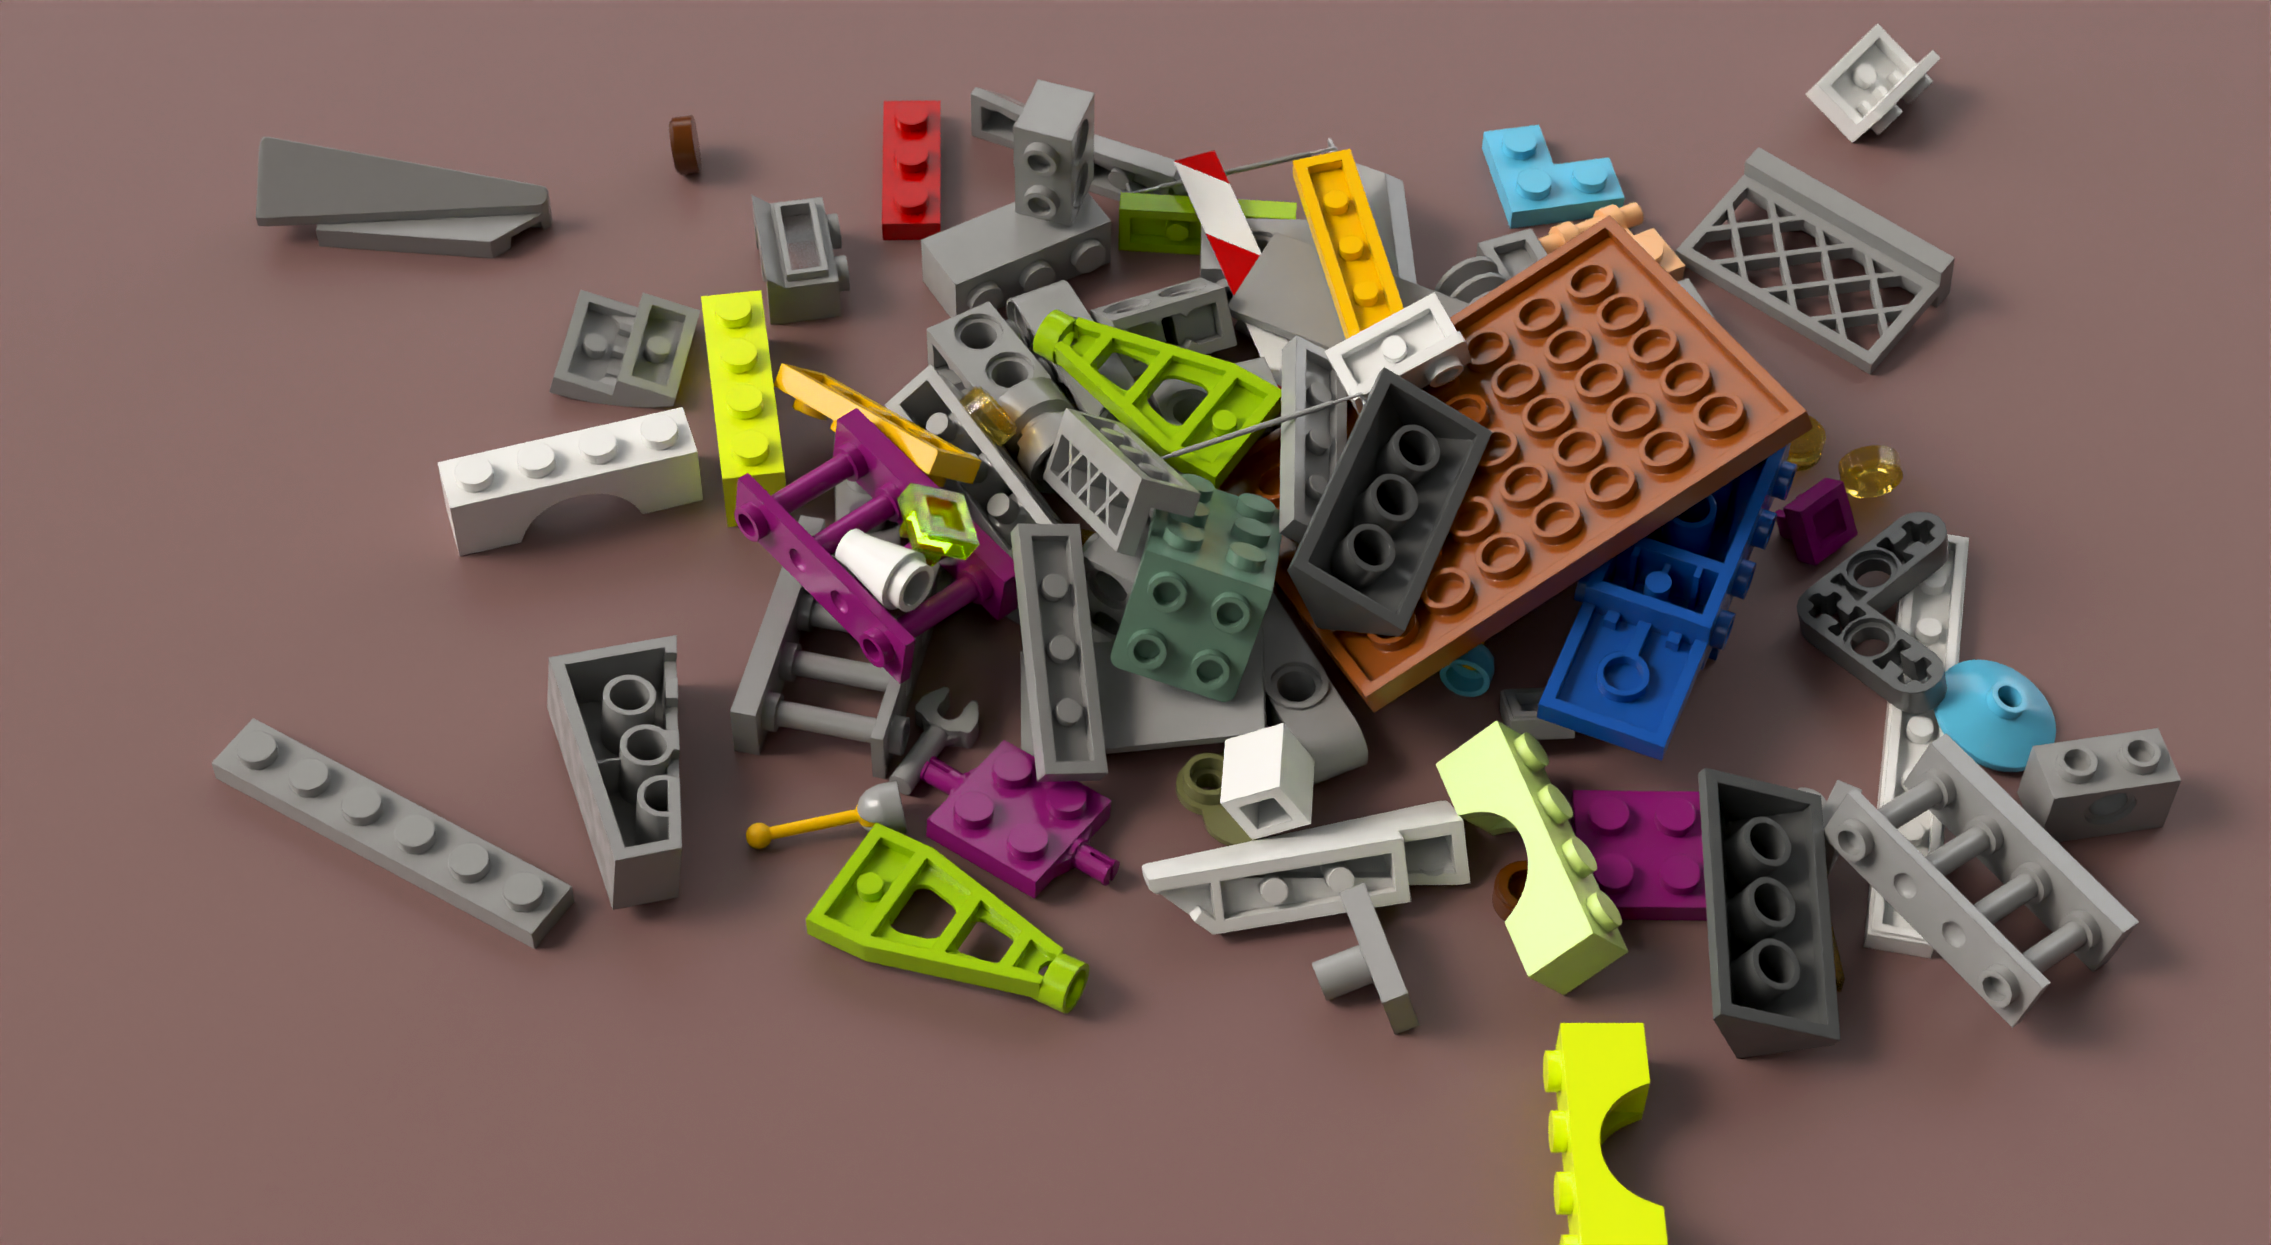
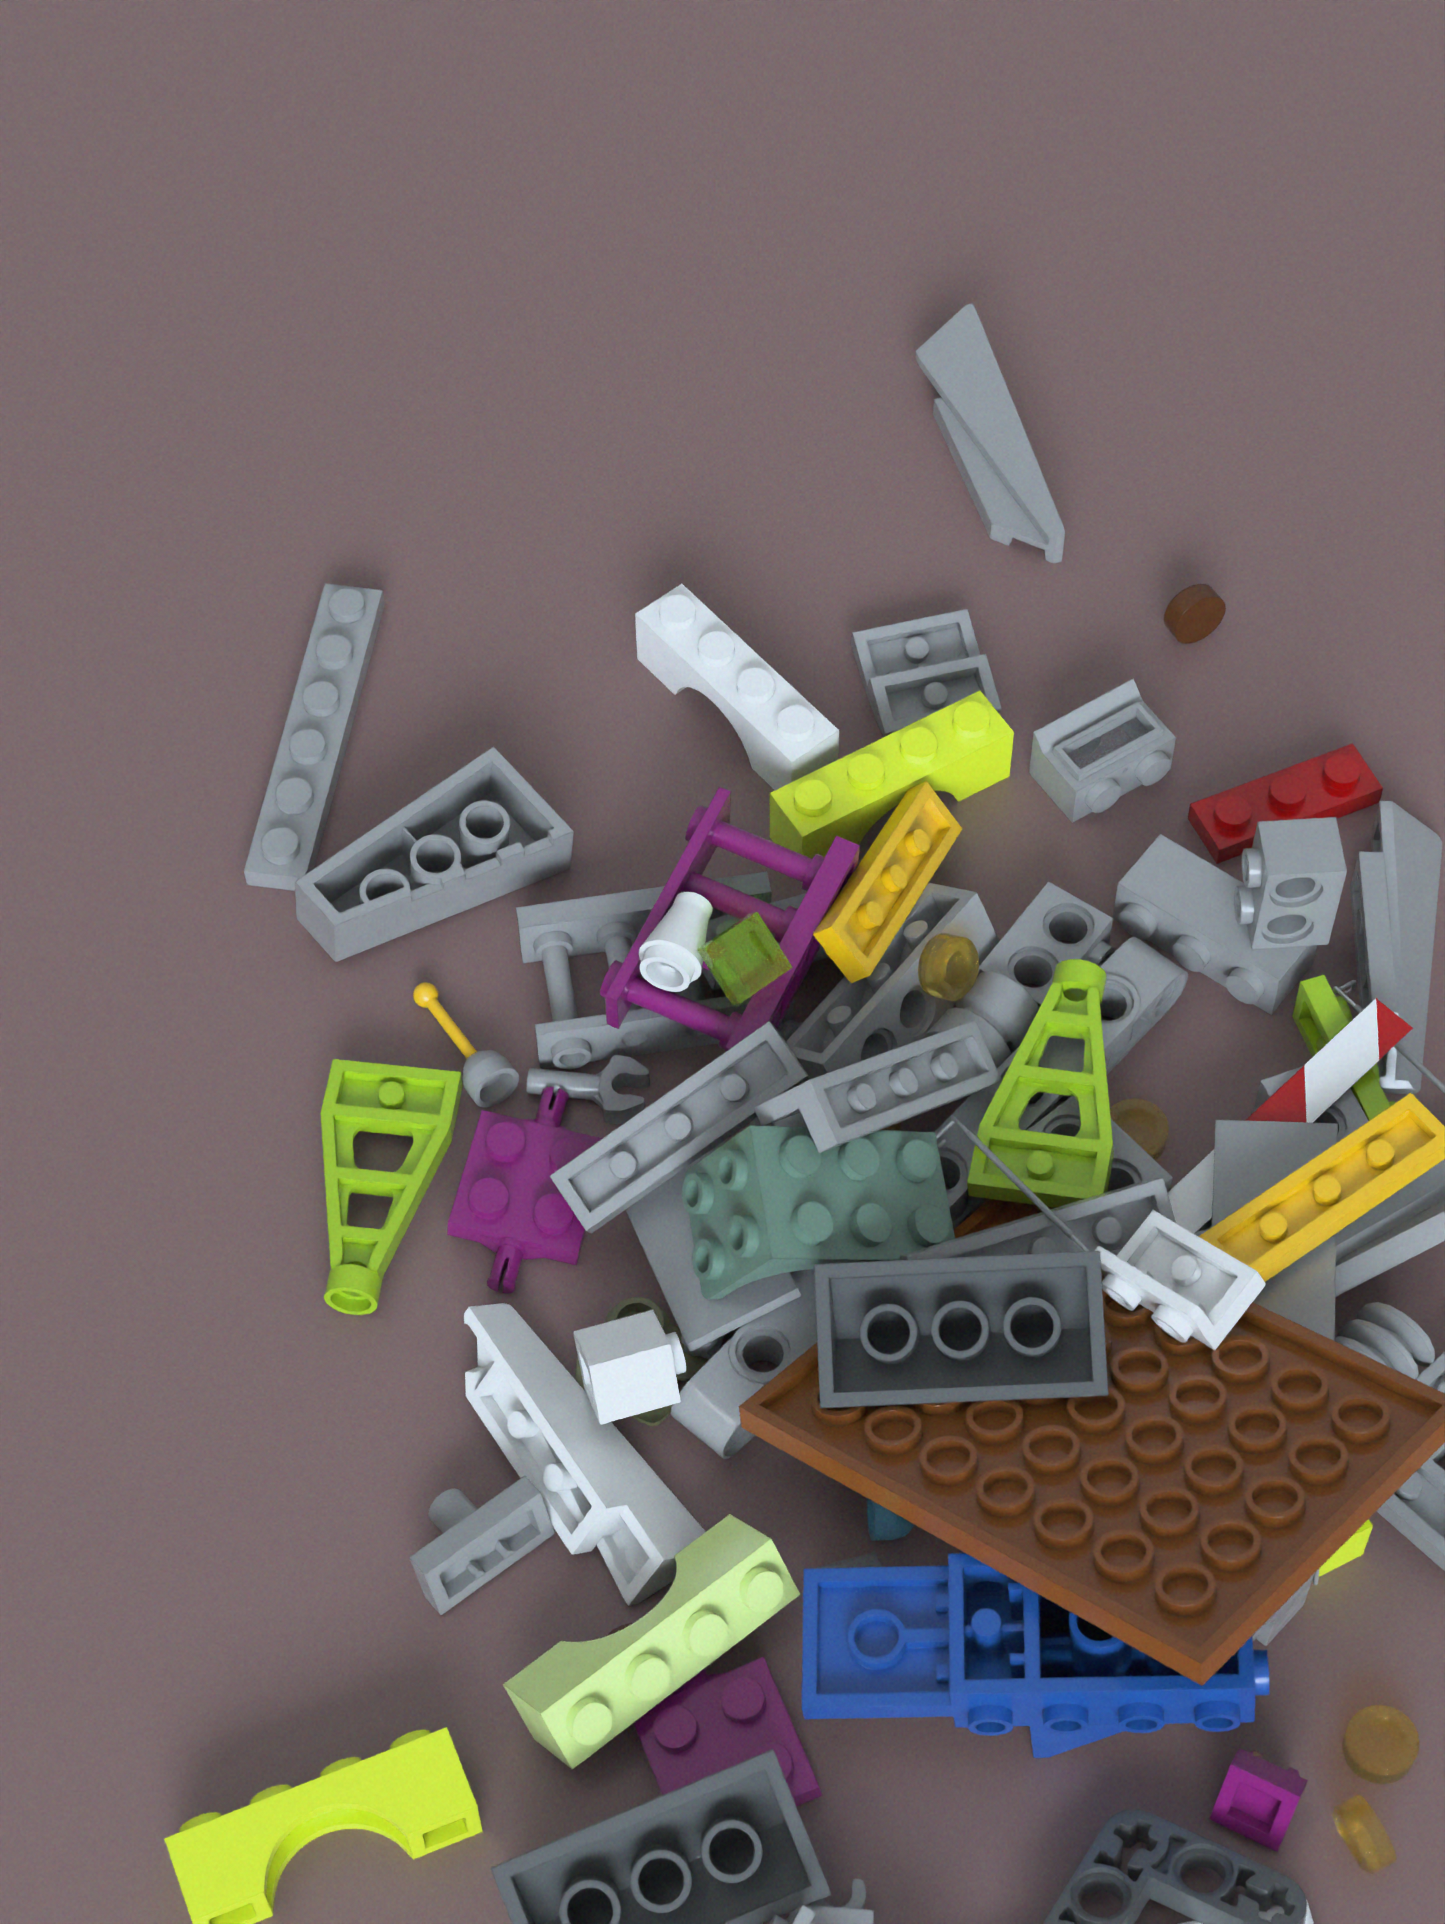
camera: 70 degrees right, 5 degrees up
(1183, 315) = (1174, 1079): light grey brick -> none

